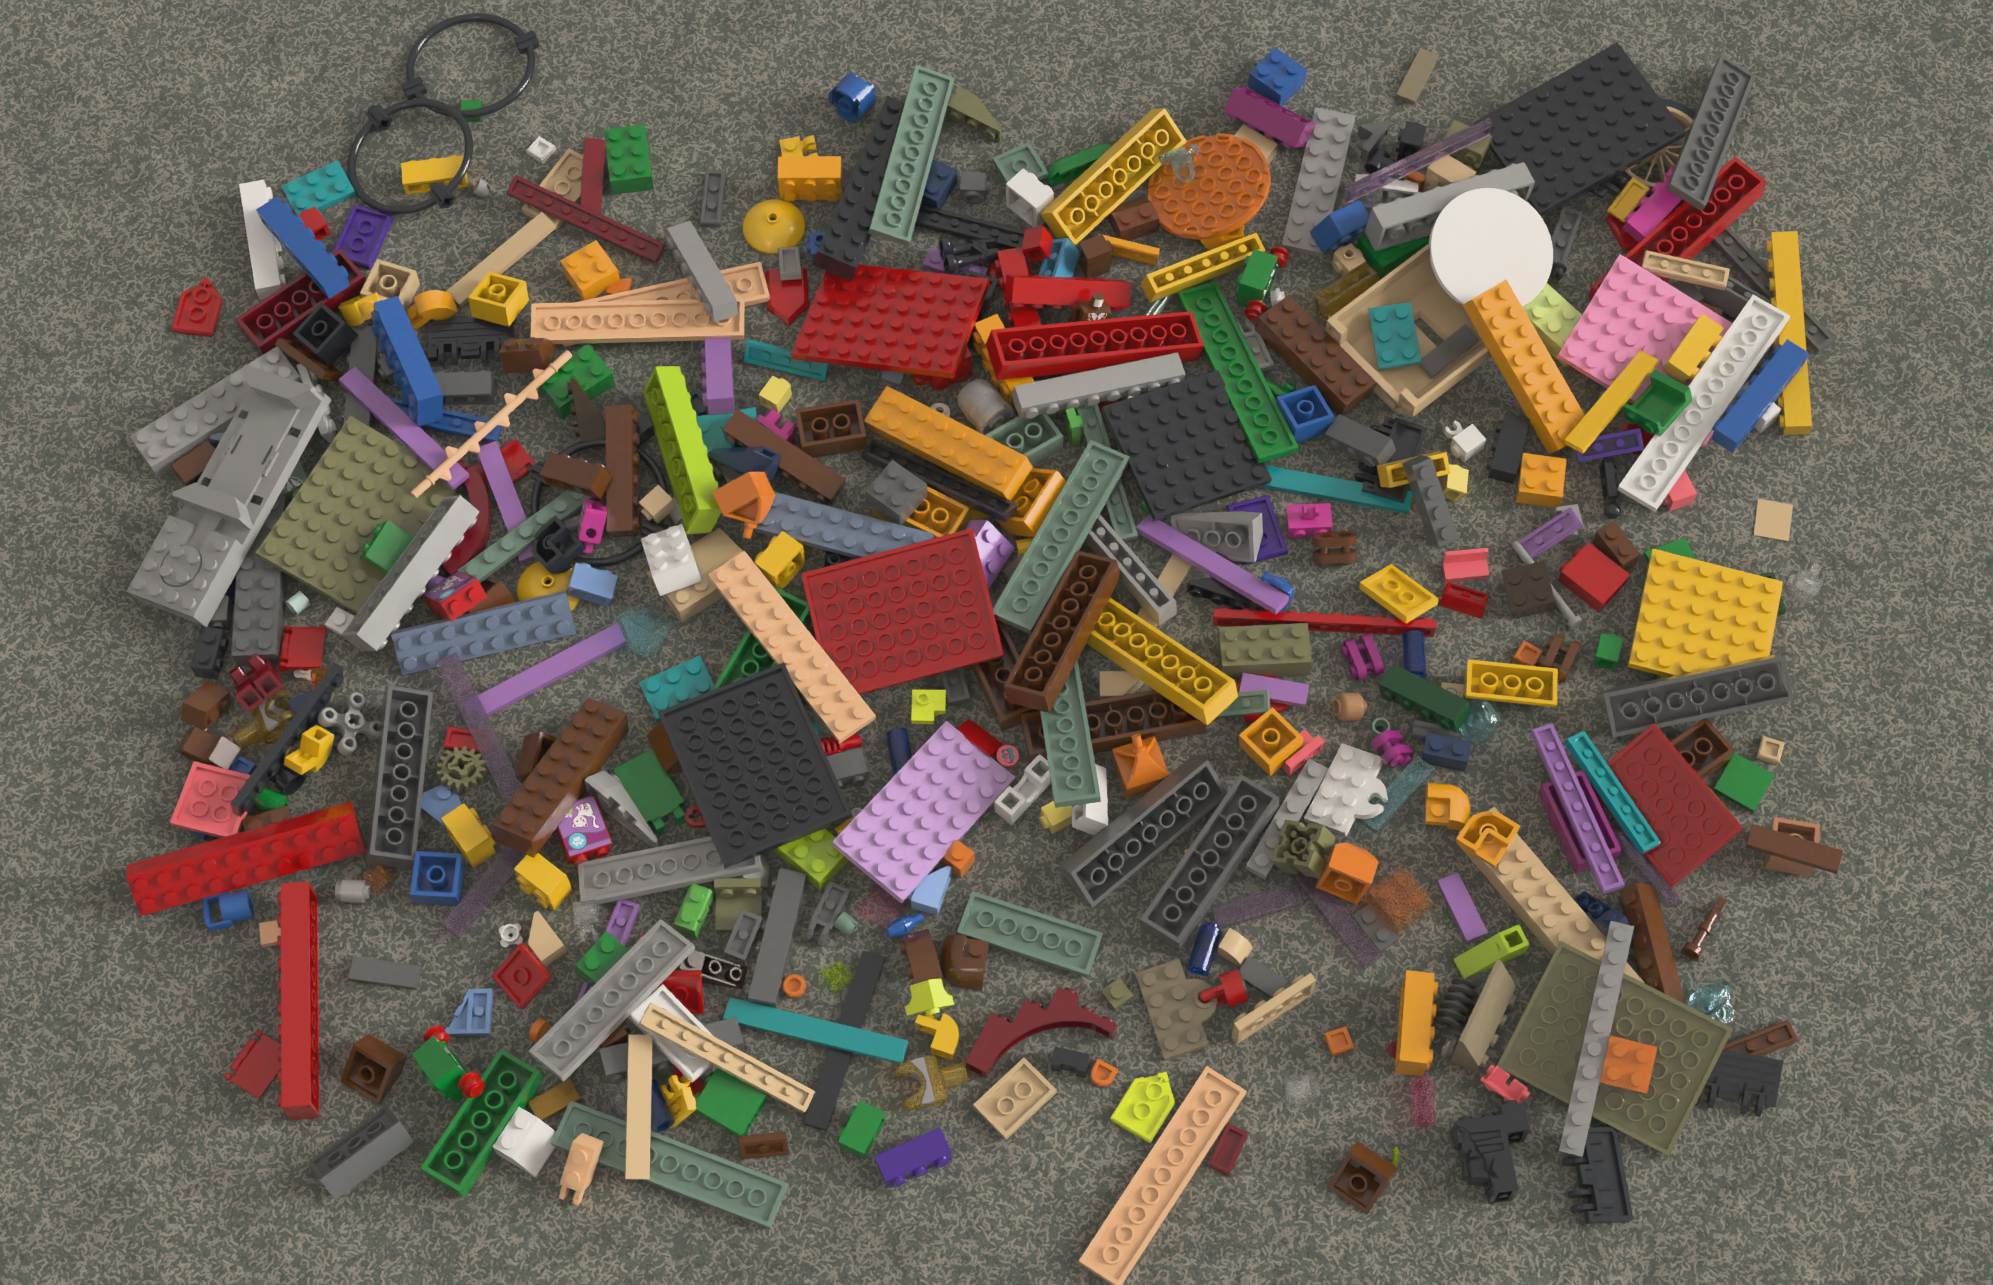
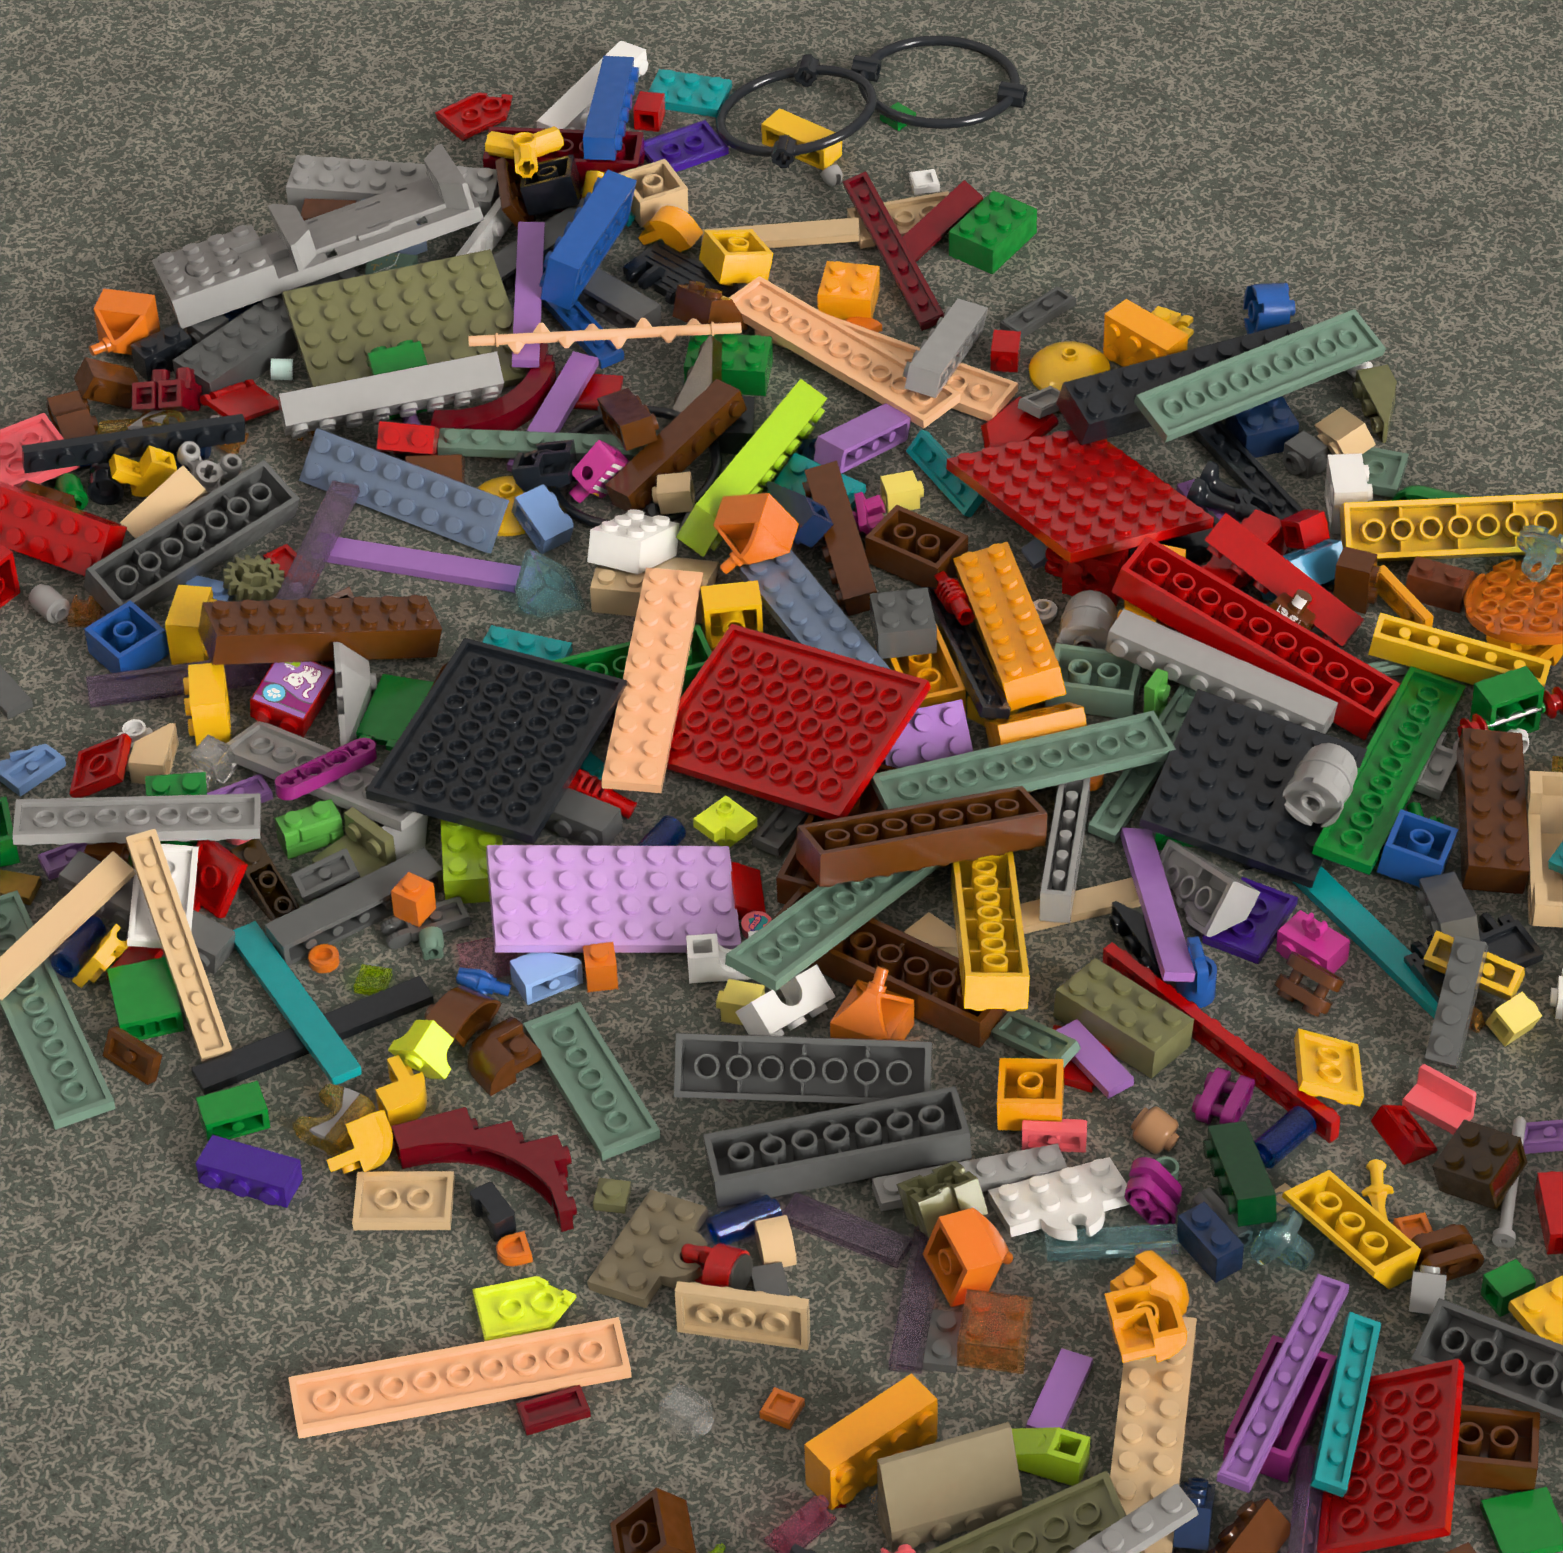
camera: 45 degrees right, 20 degrees down
(166, 654) = (123, 320): none -> orange piece
(287, 321) = (524, 148): none -> yellow piece
(357, 767) = (168, 499): none -> tan brick
(670, 867) = (301, 781): none -> magenta beam
(728, 243) = (1005, 351): none -> red brick
(816, 908) = (413, 899): none -> orange brick
(894, 448) = (953, 598): none -> red hinge
(967, 1085) = (371, 1142): none -> yellow brick
(986, 157) = (1344, 433): none -> tan brick
(1233, 418) = (1321, 785): none -> light grey piece
(1487, 646) = (1377, 1190): none -> yellow sword
(1578, 689) = (1426, 1289): none -> light grey brick

